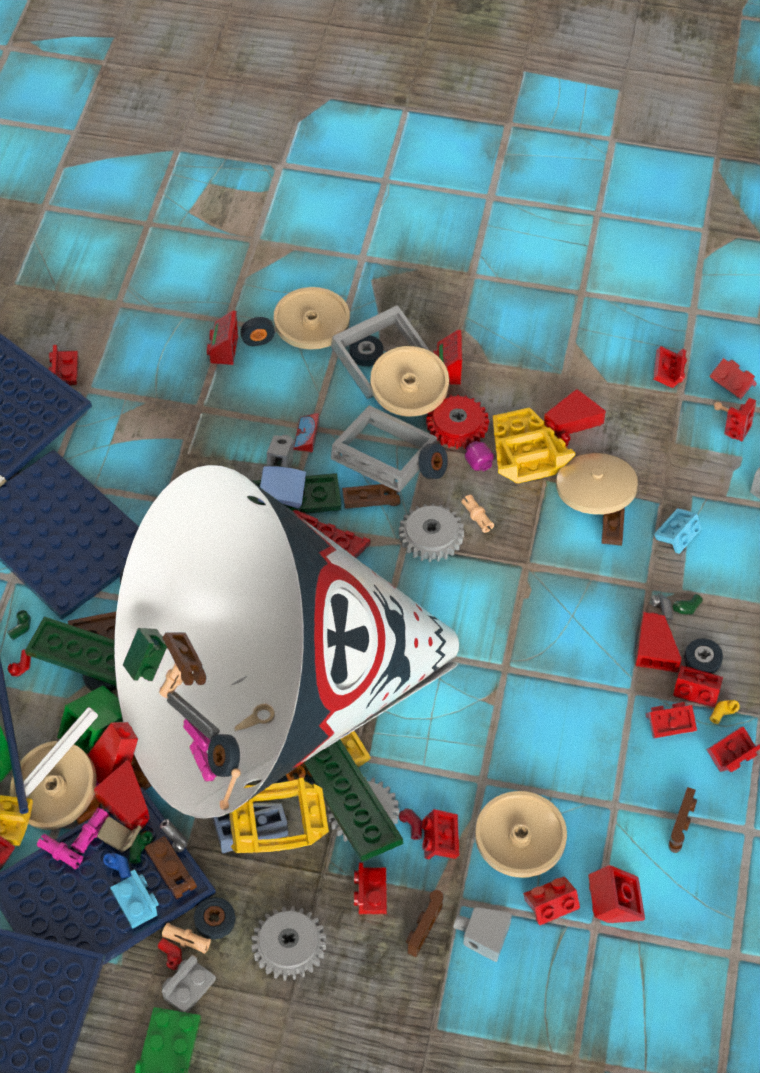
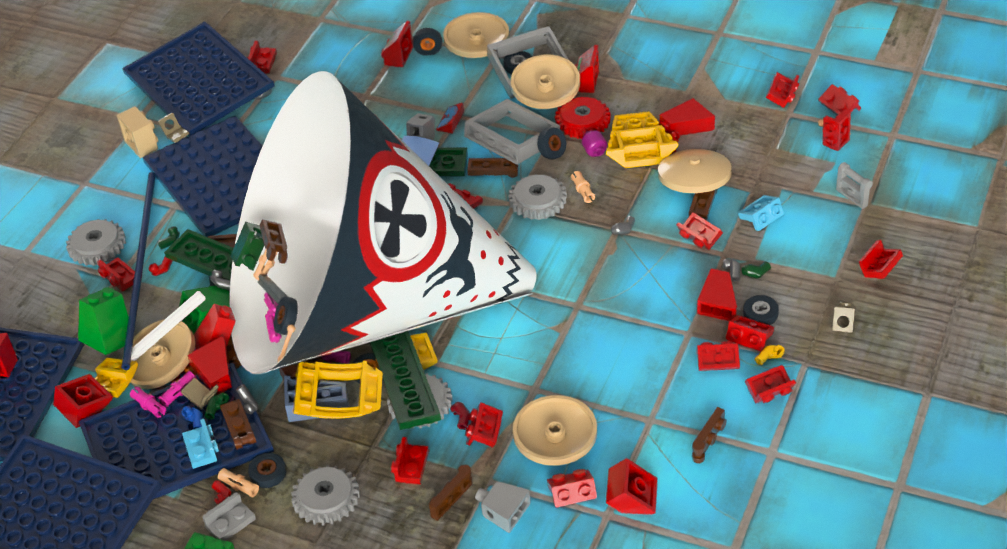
camera: 15 degrees right, 10 degrees down
(103, 686) = (218, 281): none -> flat silver arm
(535, 563) = (624, 227): none -> flat silver arm
(619, 561) = (700, 231): none -> bracket

